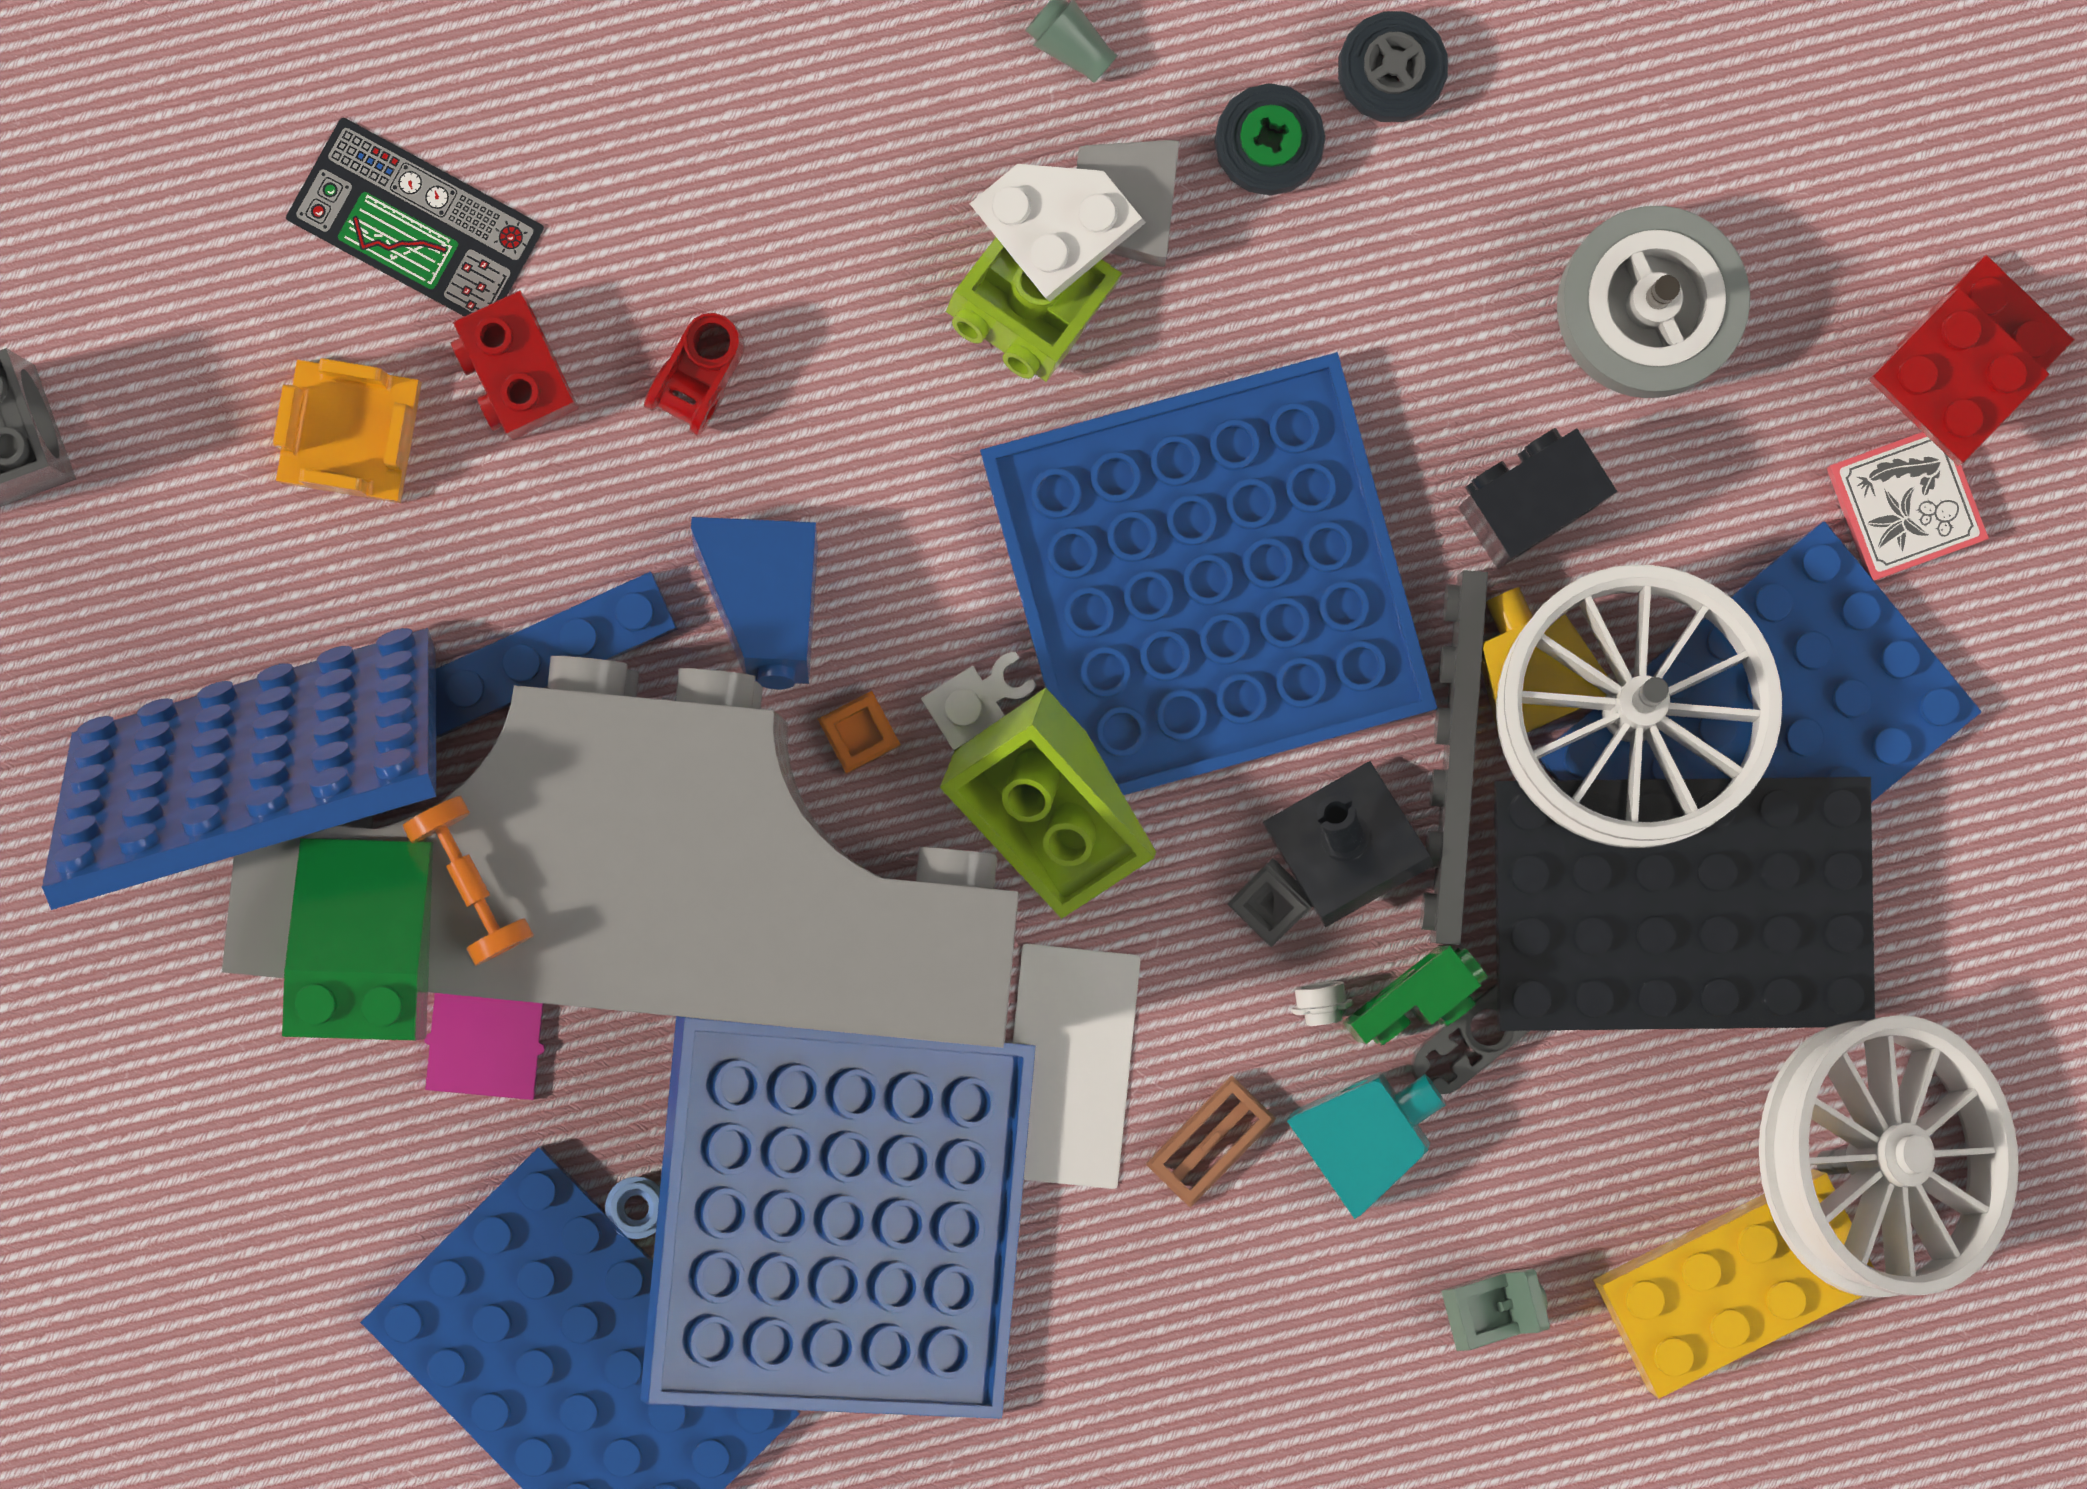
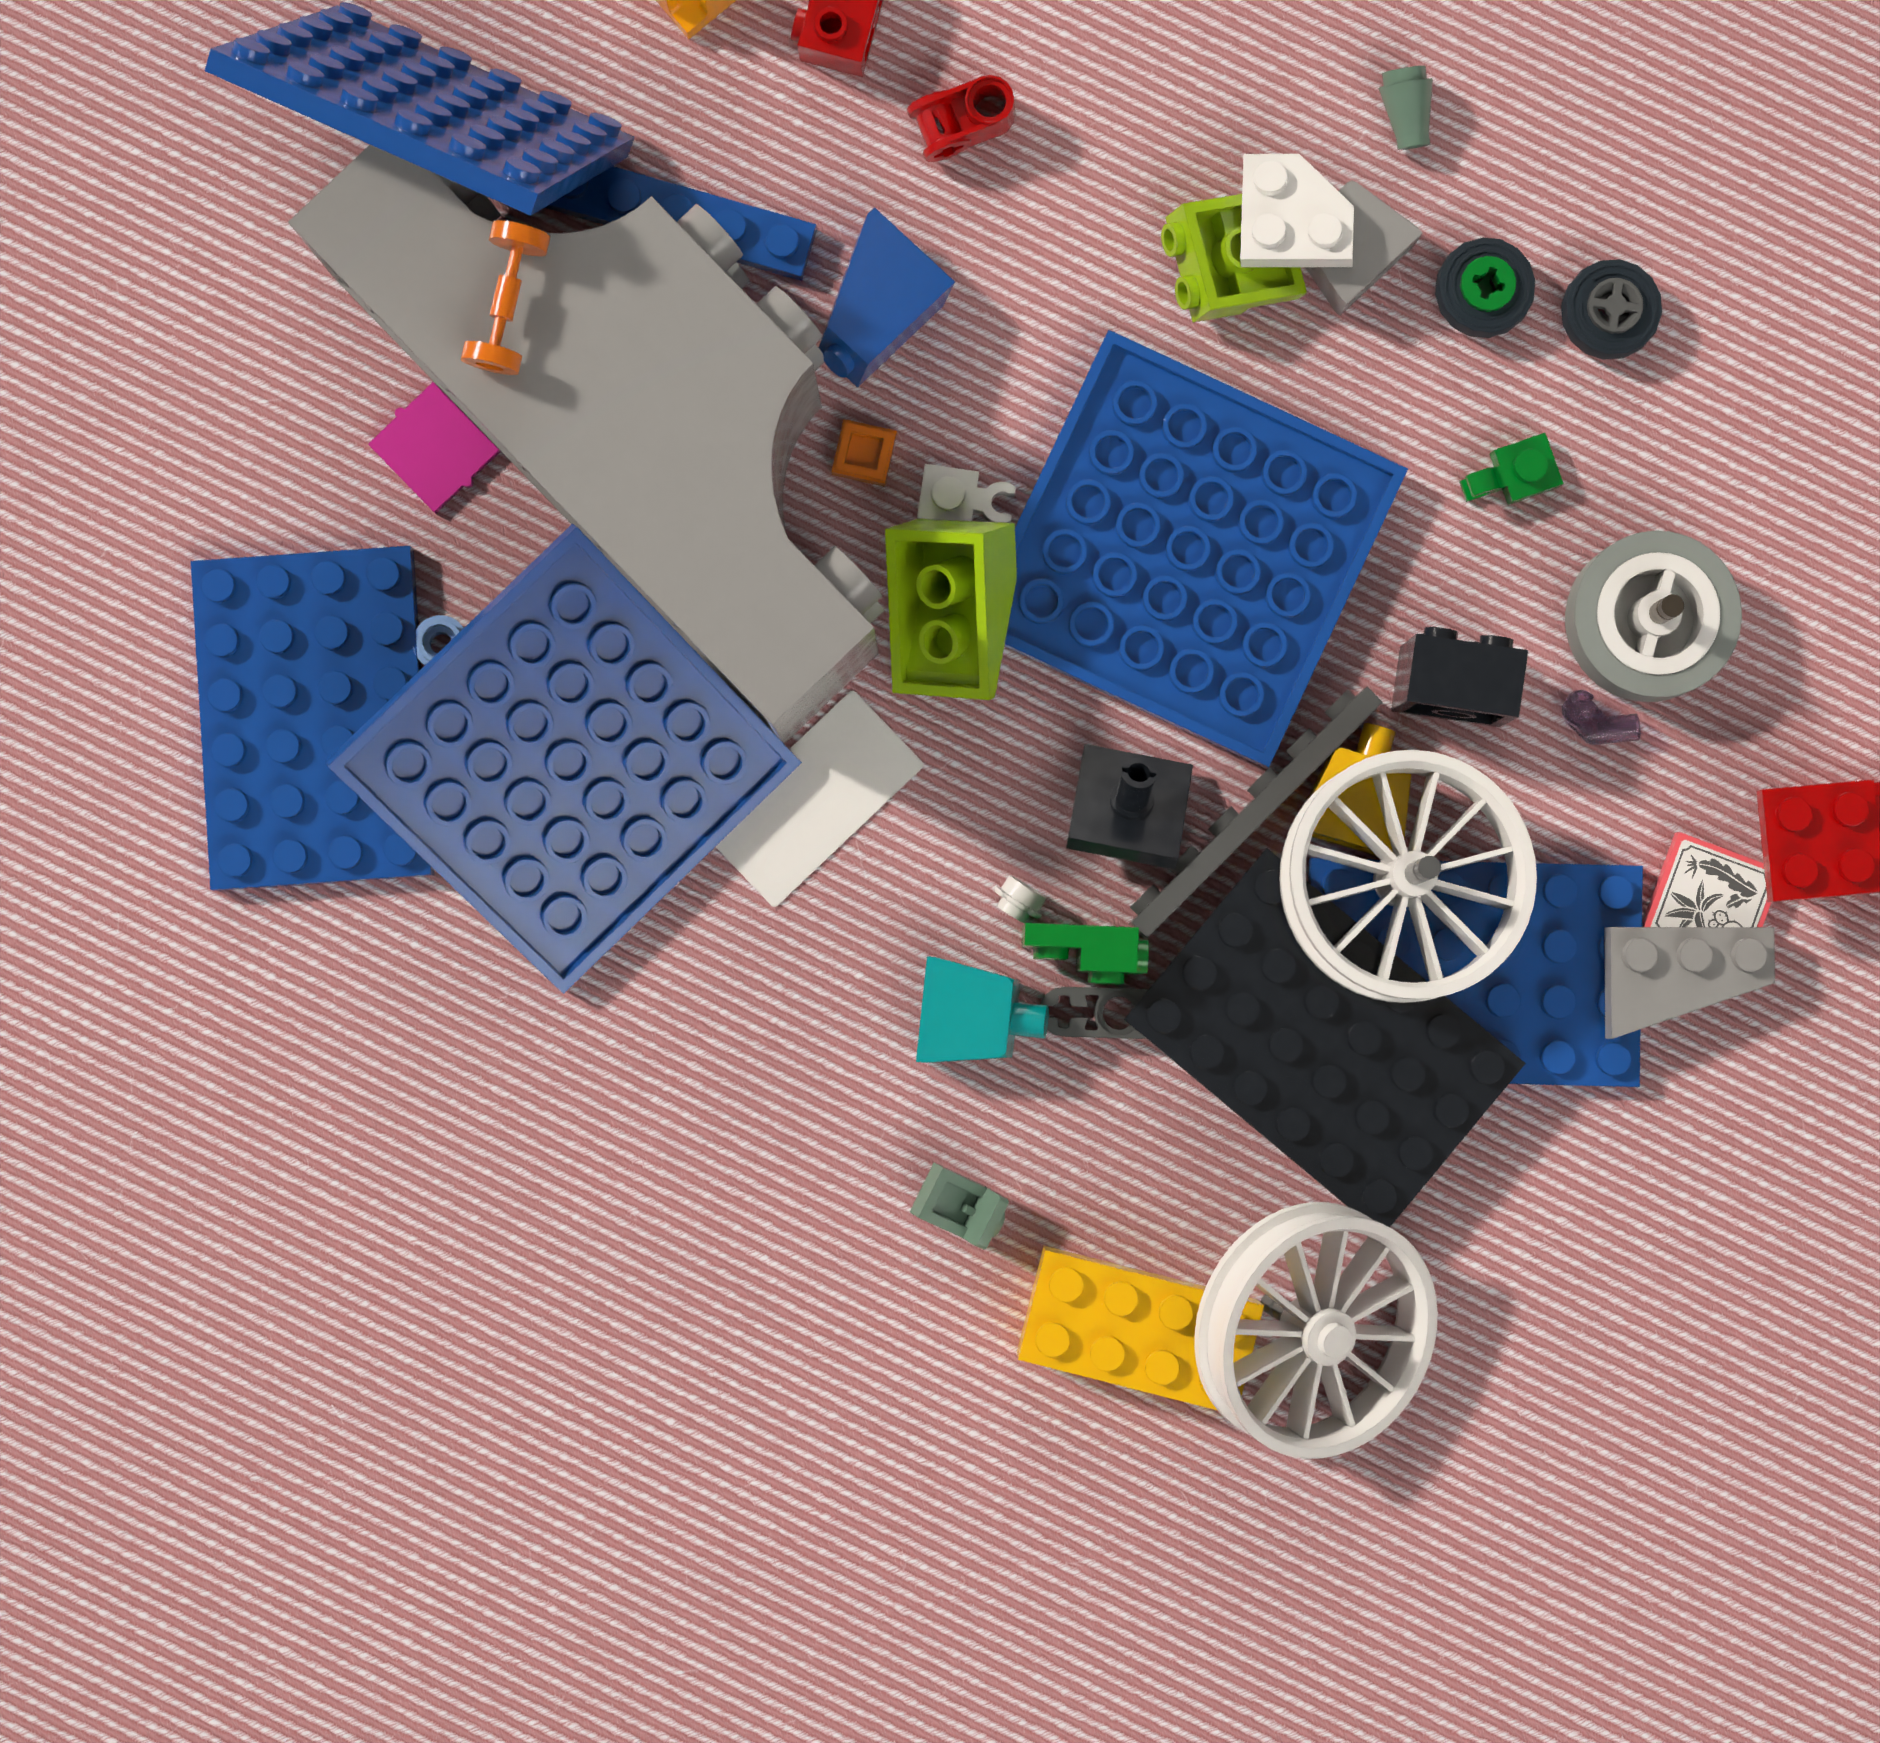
camera: 45 degrees right, 0 degrees up
(359, 941) = (396, 277): green slope -> none
(1174, 1178) = (911, 925): nougat tile -> none
(1271, 902) = (1043, 802): dark grey tile -> none
(1432, 271) = (1518, 470): none -> green plate
(1681, 435) = (1593, 725): none -> clear purple arm
(1932, 584) = (1677, 970): none -> light grey wing

